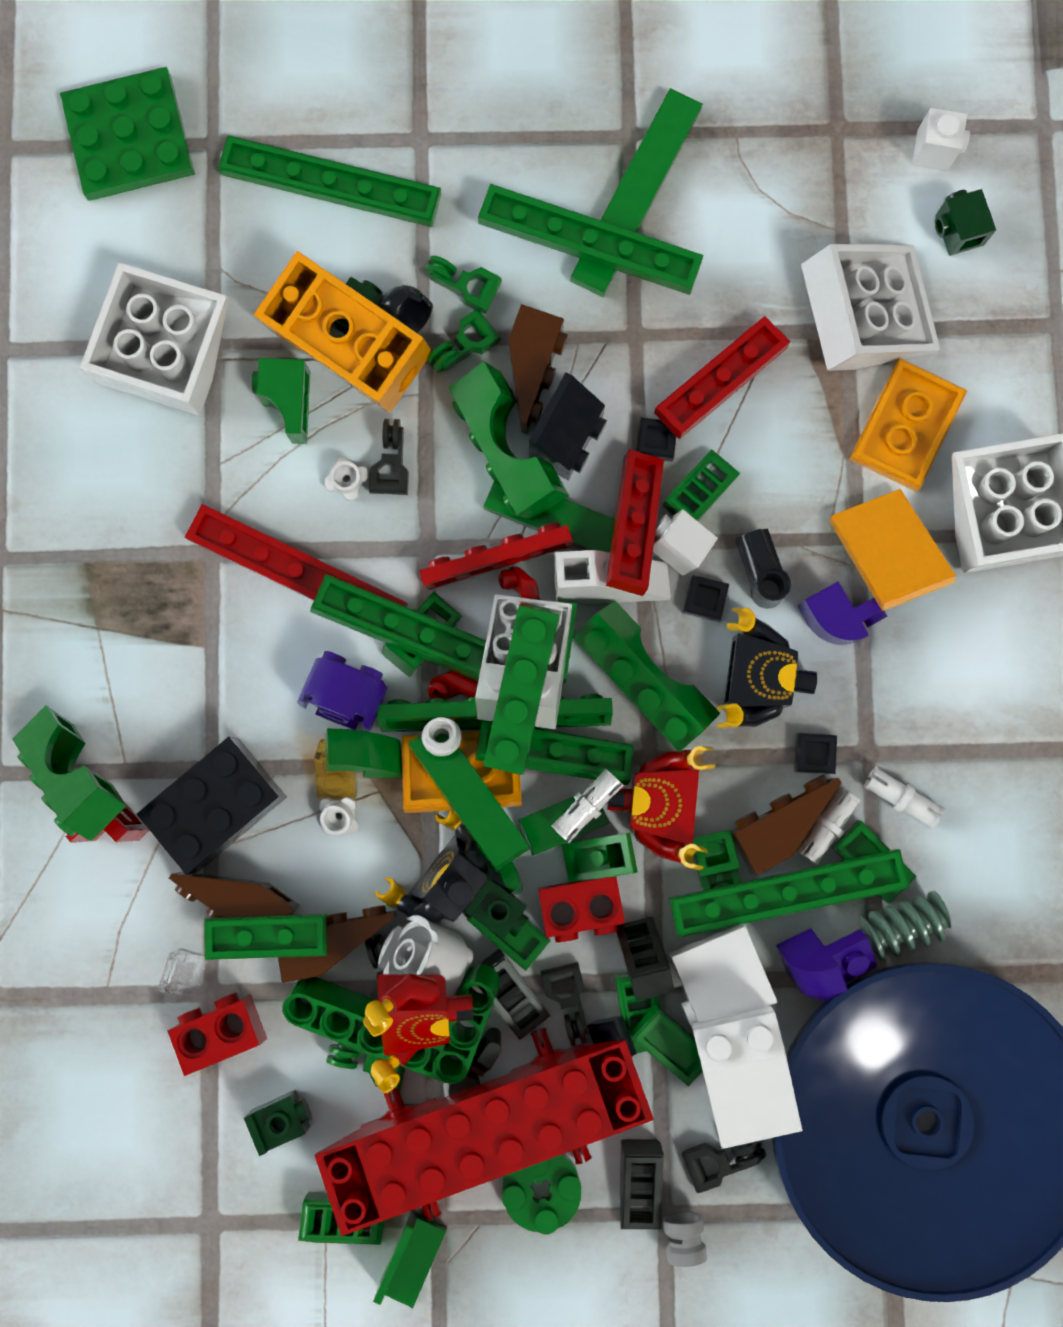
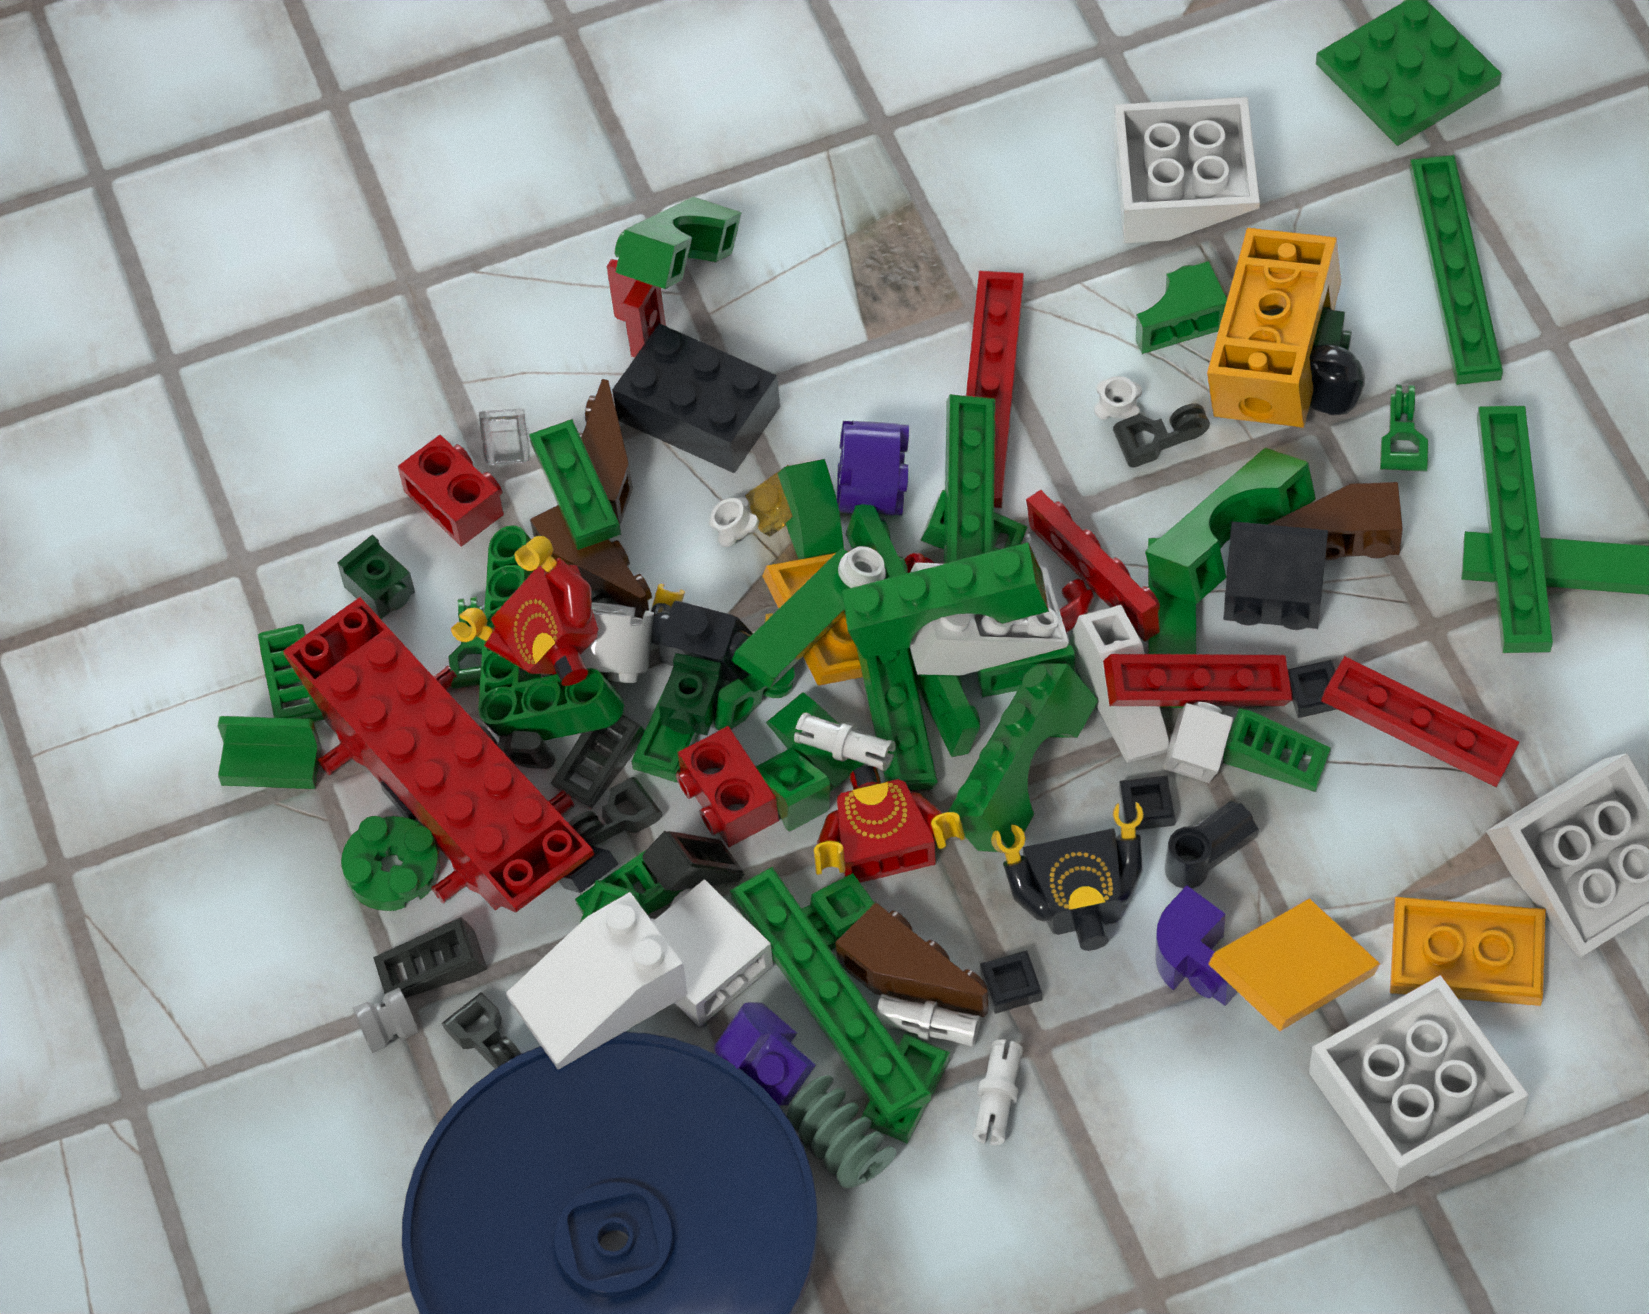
camera: 75 degrees right, 25 degrees down
(445, 358) = (1306, 440): green piece -> none

